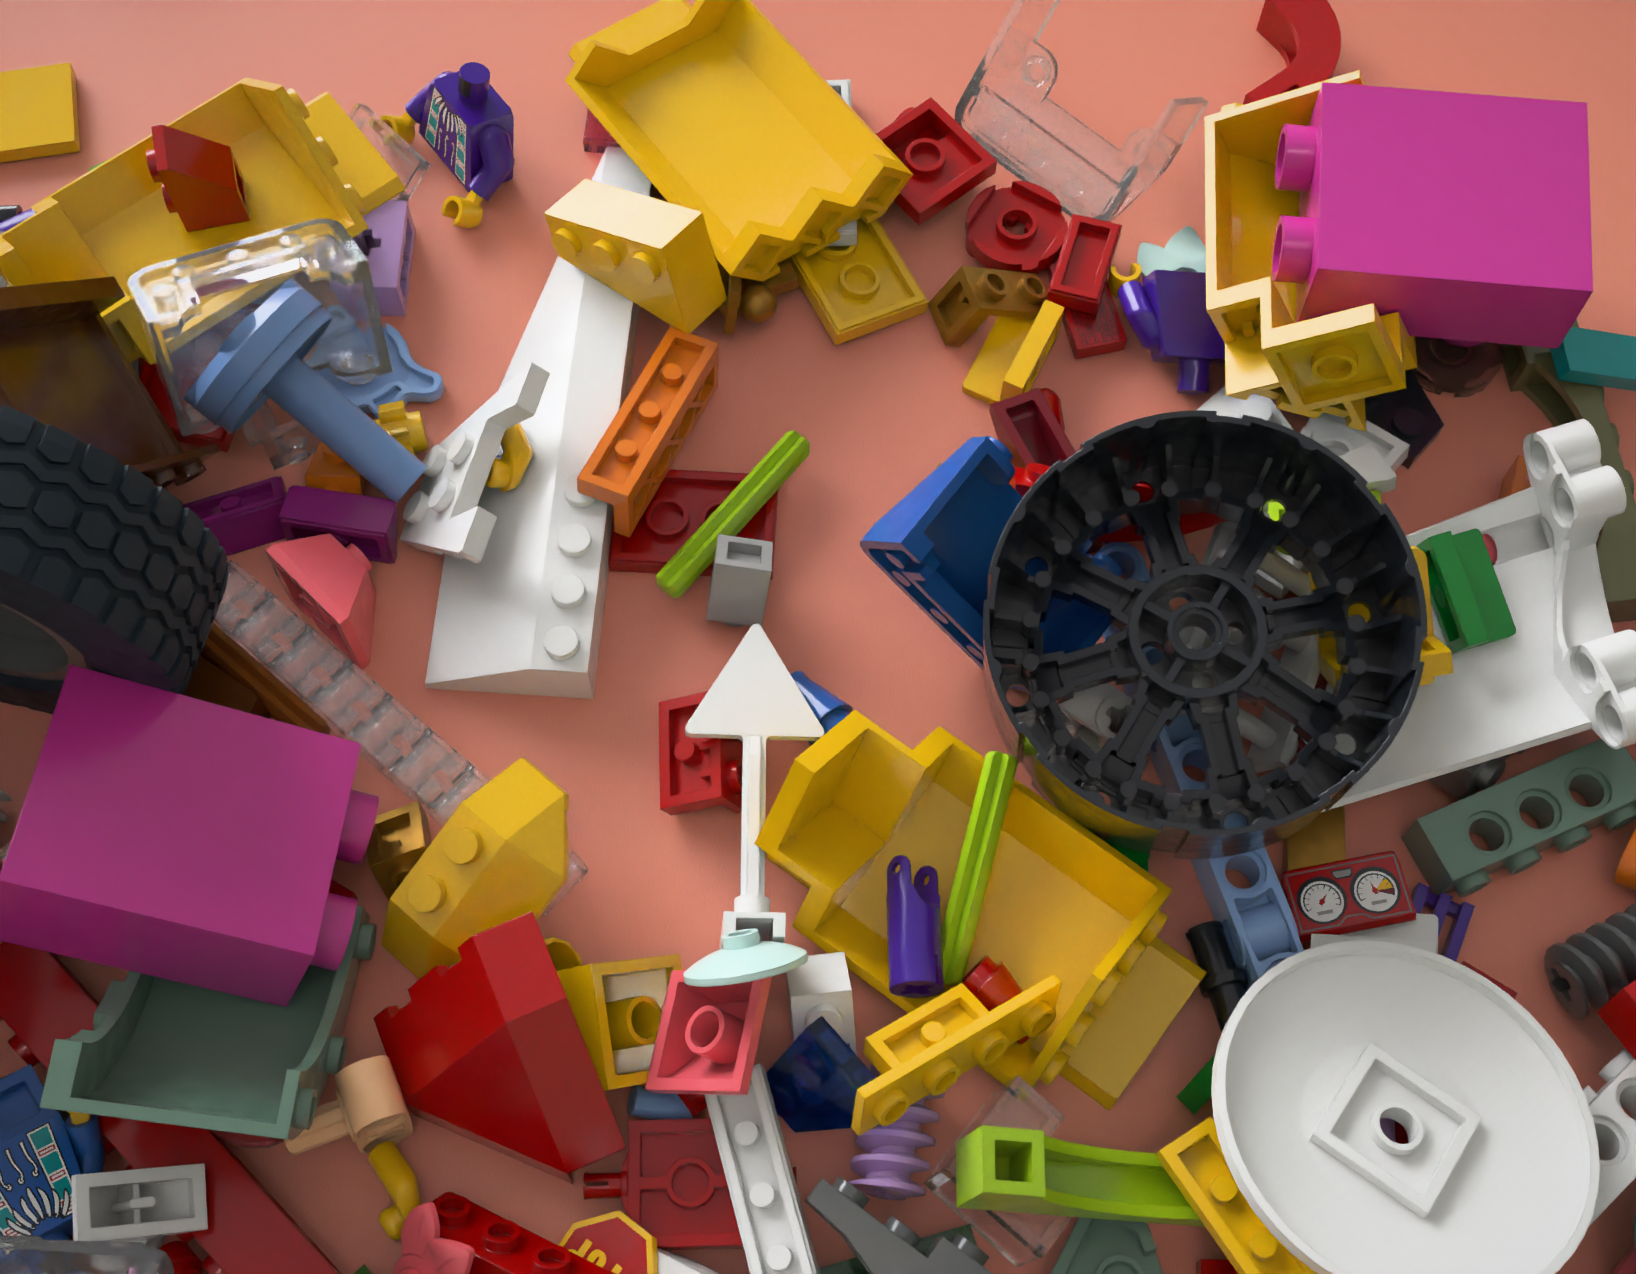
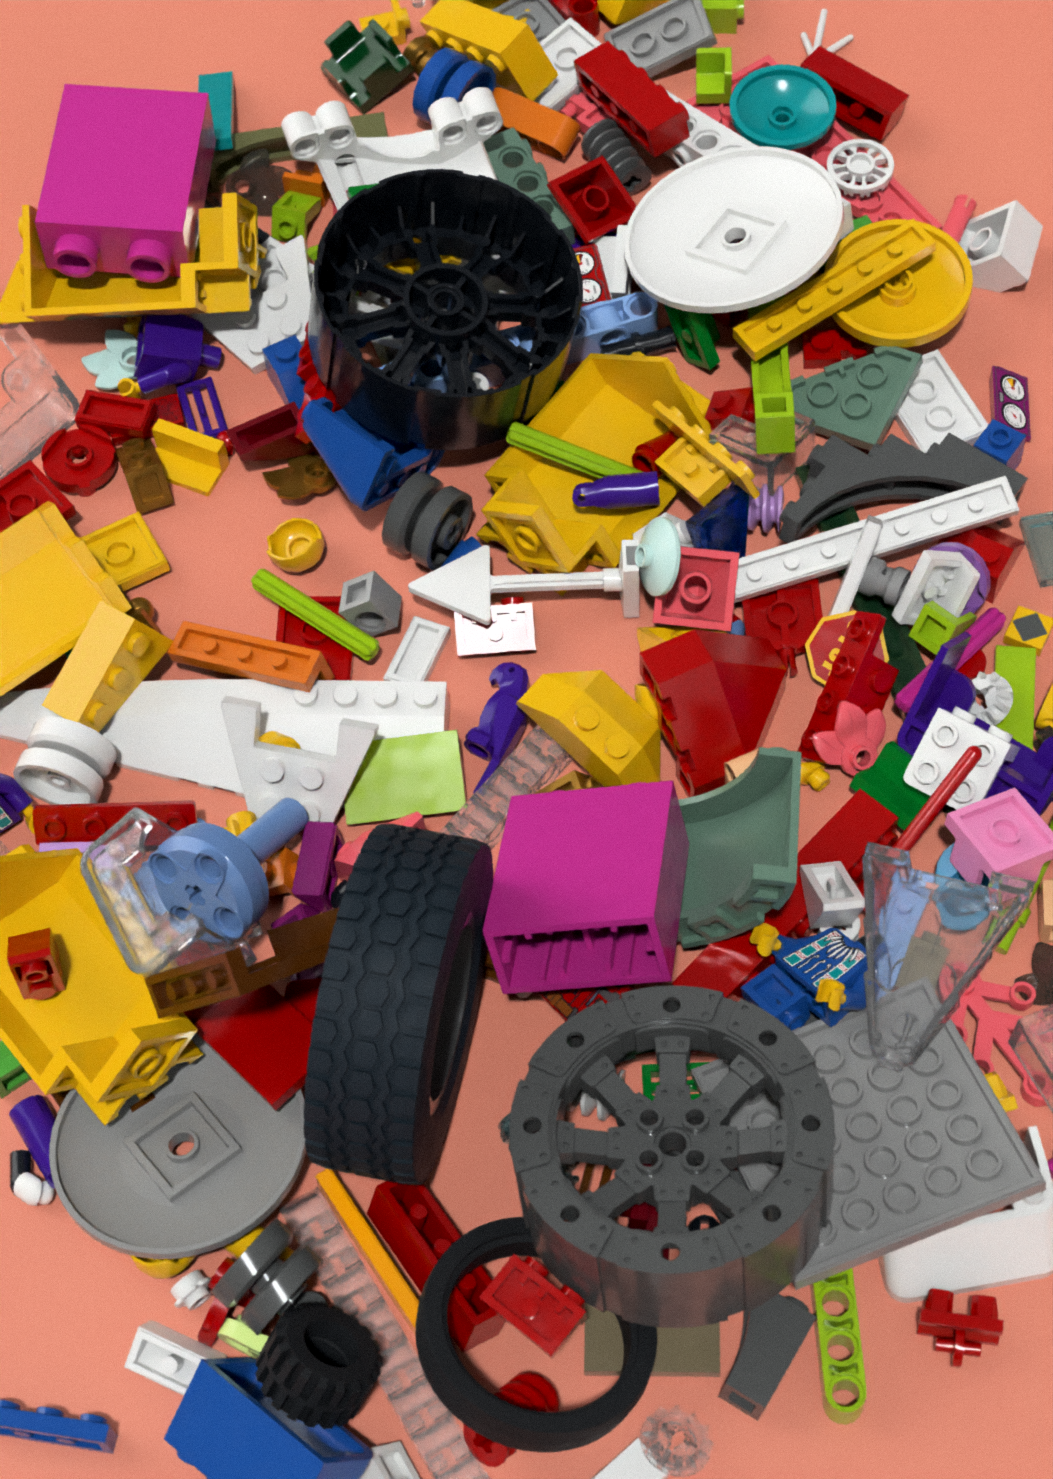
camera: 85 degrees left, 5 degrees down
(432, 287) = (92, 820): none -> red bracket
(456, 628) = (408, 777): none -> lime tile
(506, 219) = (64, 762): none -> white wheel
(556, 755) = (500, 720): none -> dark purple animal
(670, 652) = (418, 651): none -> white tile
(854, 488) = (295, 545): none -> yellow hair
(872, 651) = (426, 520): none -> dark grey wheel
(1096, 1118) = (727, 402): none -> red bracket
(1099, 386) = (194, 386): none -> dark purple tile
(1459, 479) = (293, 214): none -> lime bracket
(1501, 440) = (263, 181): none -> clear smoke plate
(1502, 910) = (593, 199): none -> red slope

